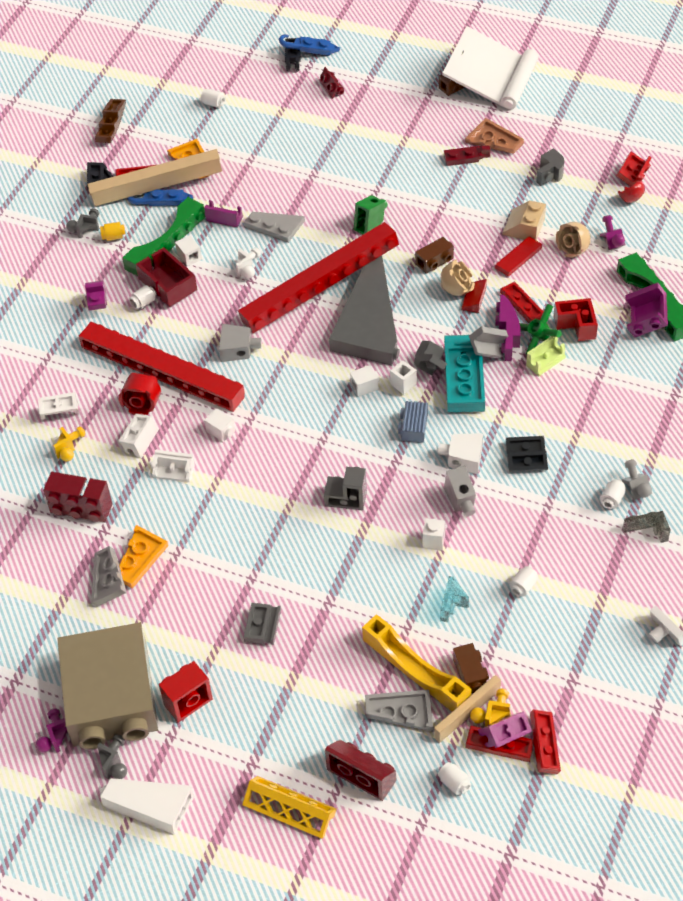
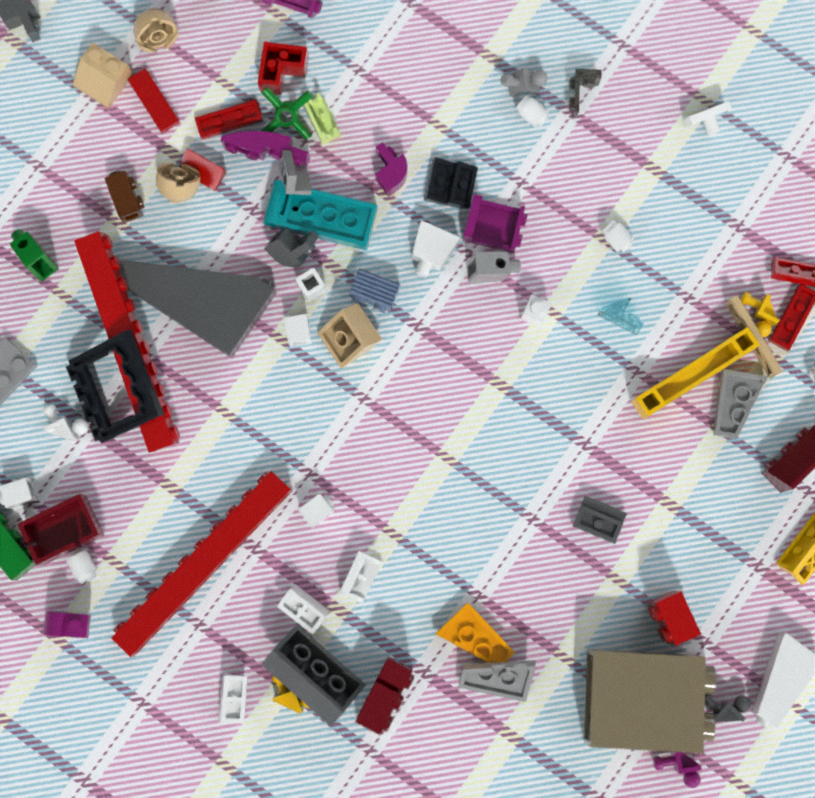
camera: 80 degrees left, 30 degrees up
(86, 444) = (313, 674): none -> dark grey brick
(140, 393) = (247, 596): red brick -> none
(237, 343) = (193, 464): light grey torso -> none
(311, 267) = (141, 387): none -> black hinge
(347, 491) = (455, 386): dark grey brick -> none
(372, 414) = (349, 335): none -> tan slope
(469, 667) = (708, 321): reddish brown brick -> none
(501, 489) = (494, 225): none -> magenta panel
(506, 730) = (790, 307): hinge -> none
(518, 412) = (394, 173): none -> magenta brick

